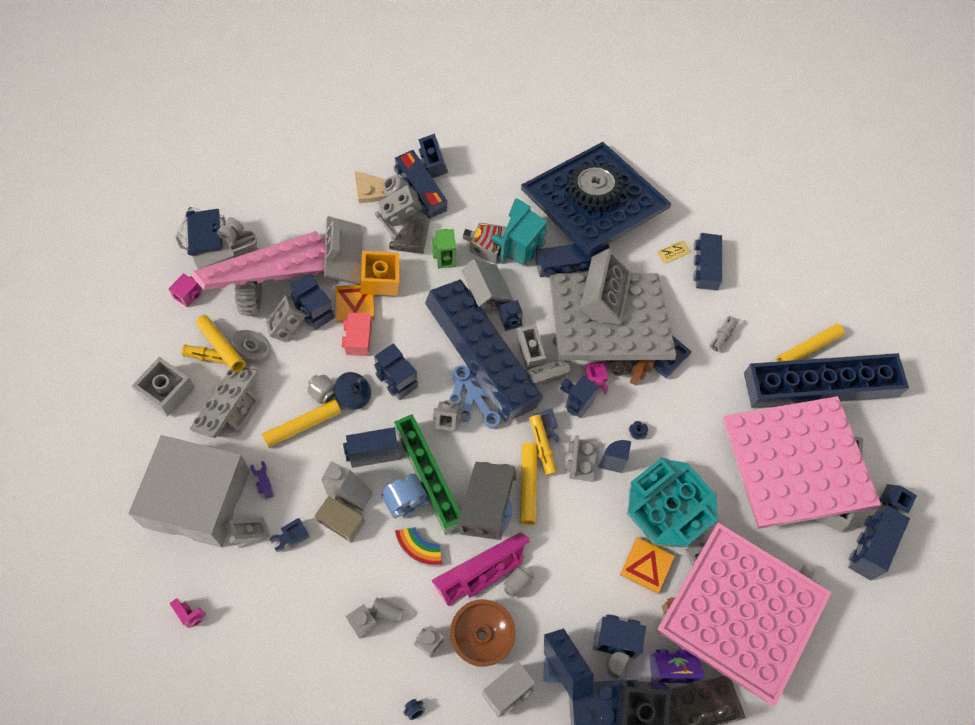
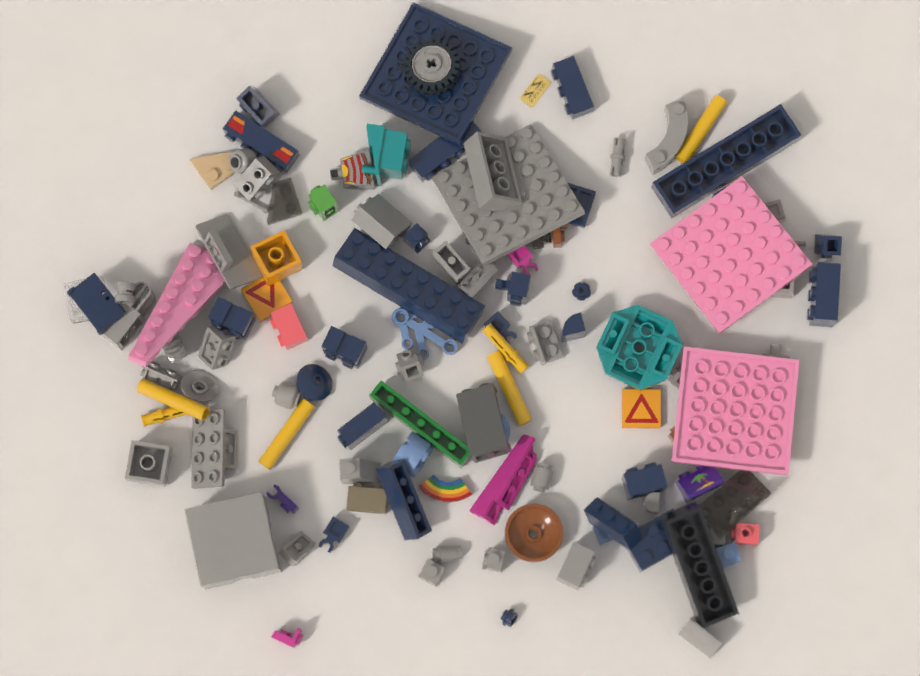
camera: 20 degrees left, 15 degrees up
(185, 290) = (108, 363): dark pink brick -> none
(220, 315) = (168, 376): none -> light grey hinge
(372, 534) = (404, 500): none -> dark blue brick
(770, 347) = (671, 144): none -> light grey brick

